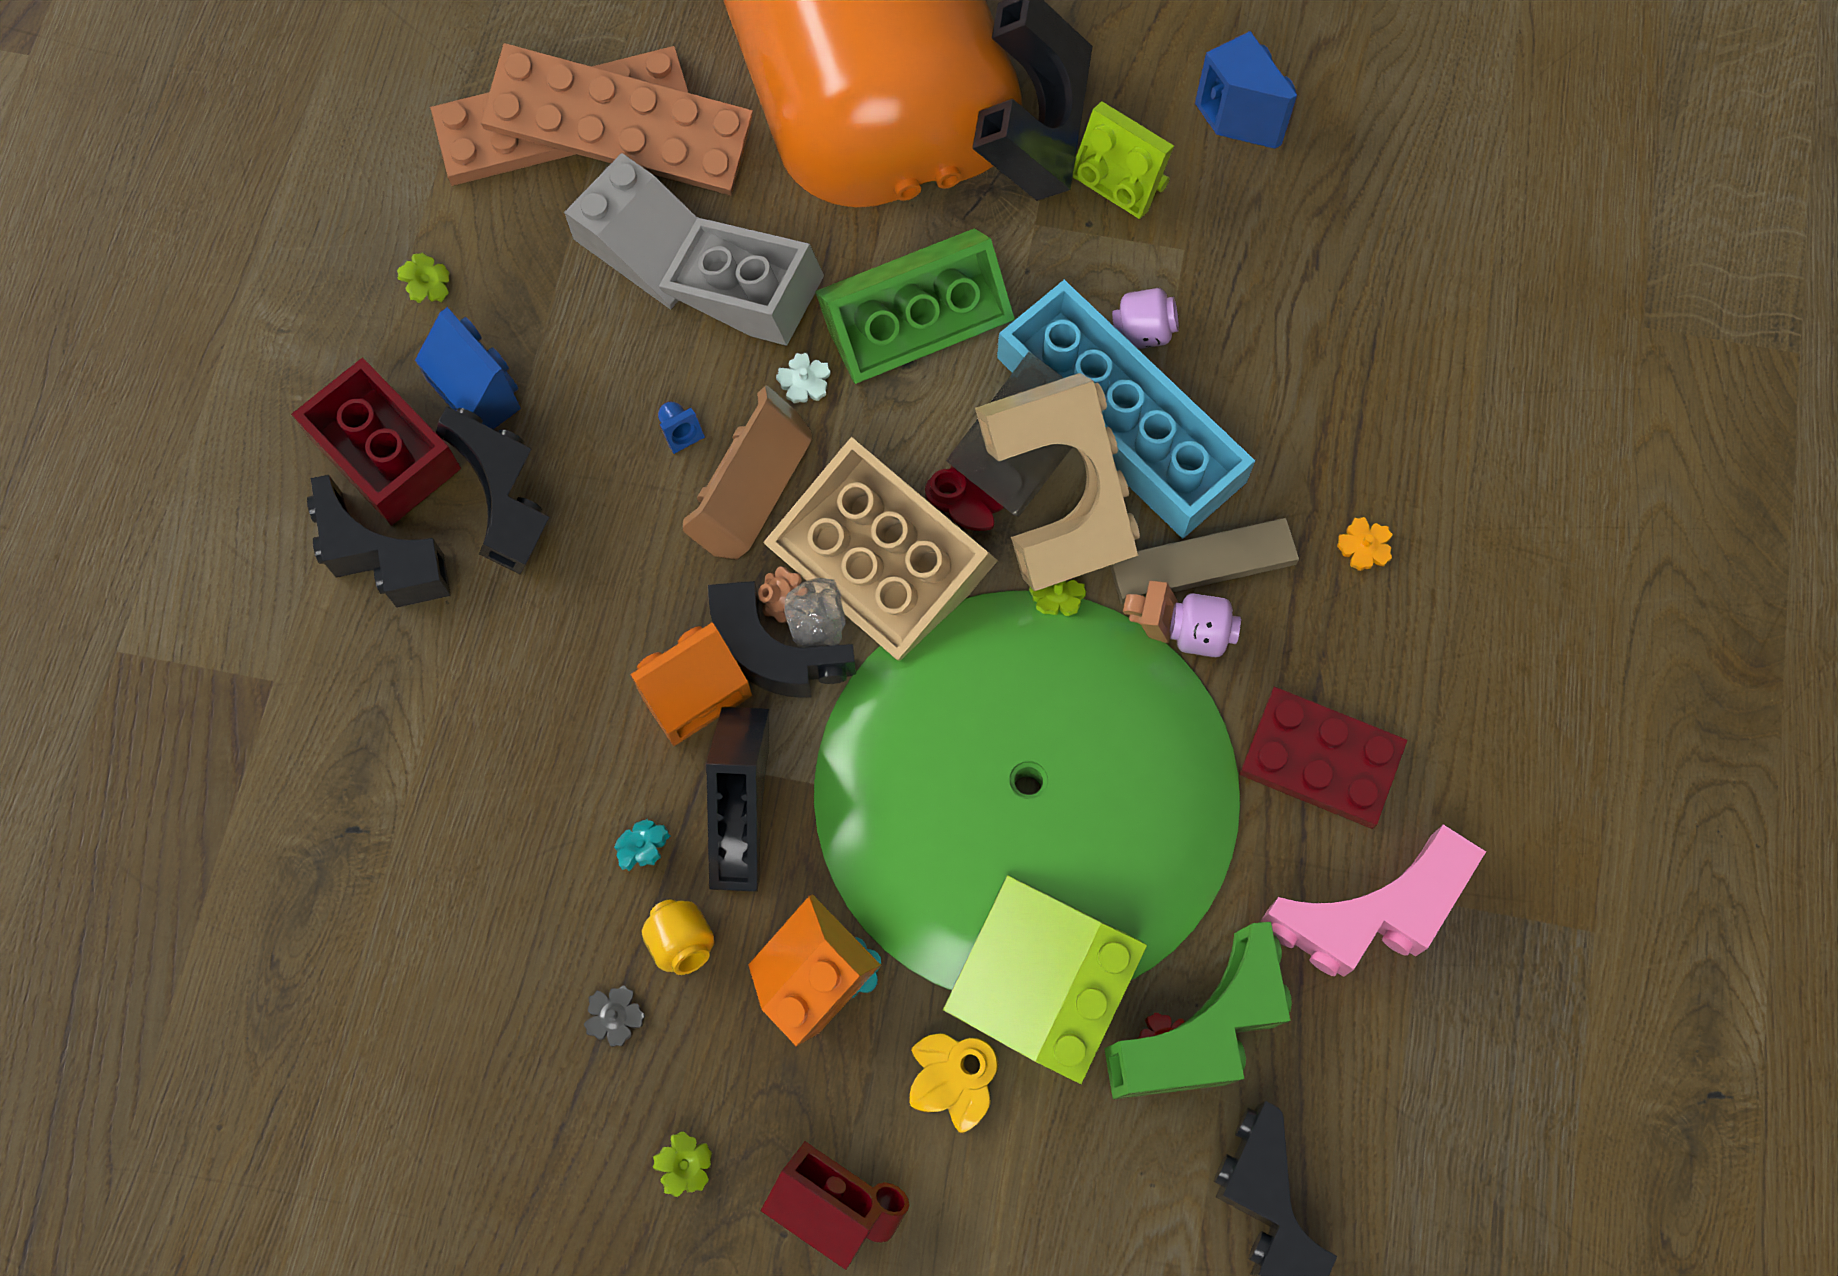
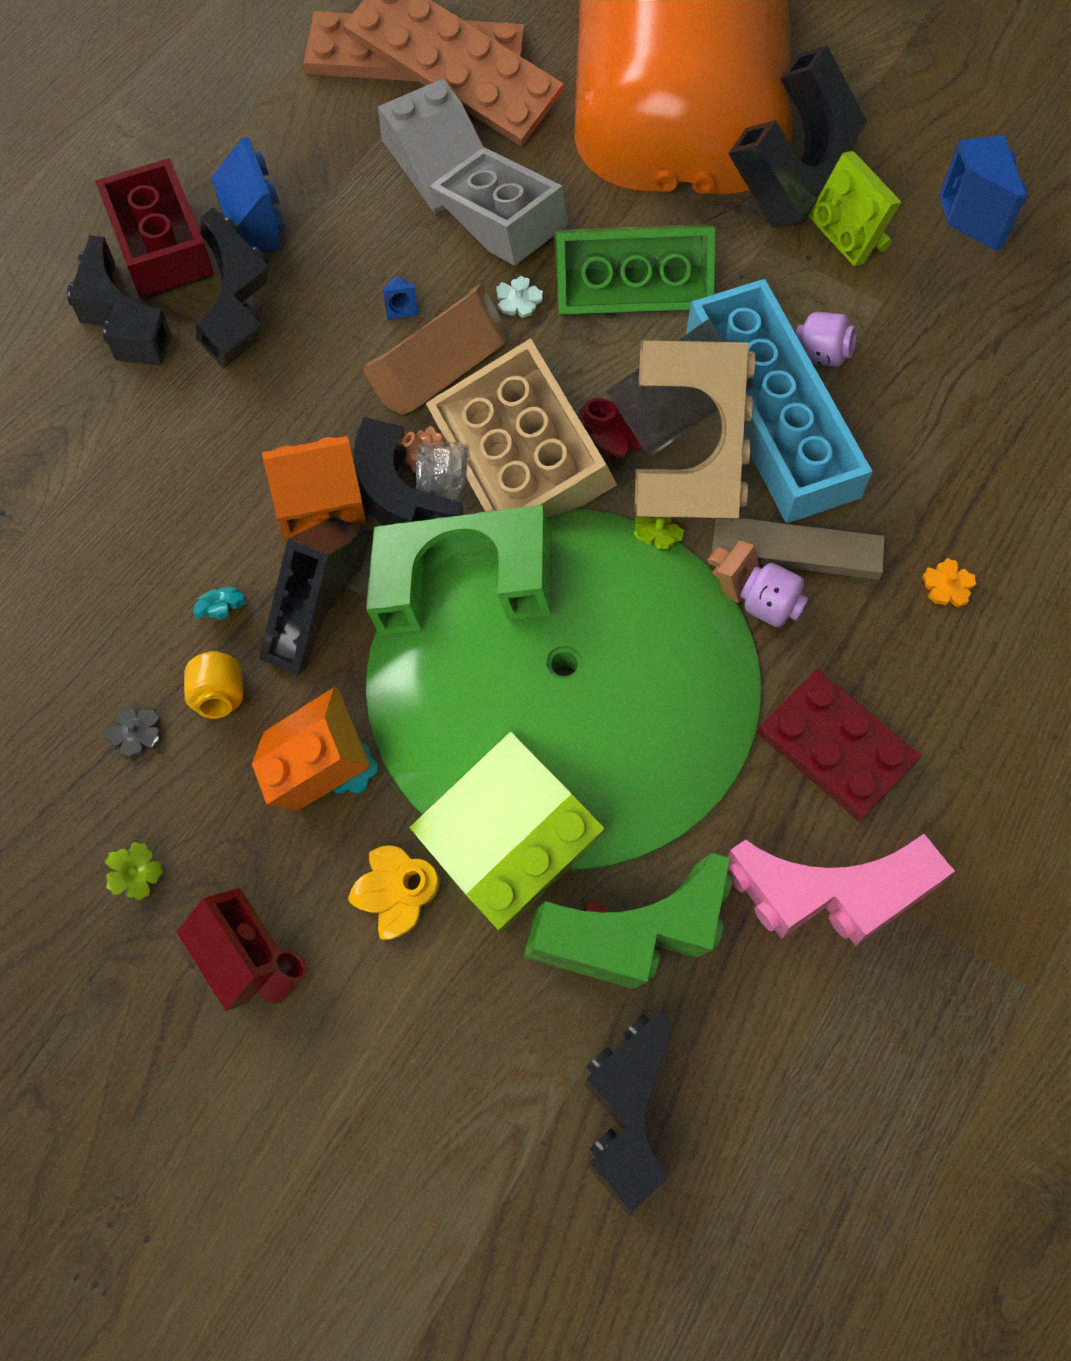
camera: 20 degrees right, 5 degrees down
(424, 278) = (251, 125): lime plant -> none
(821, 716) = (412, 552): none -> bright green arch

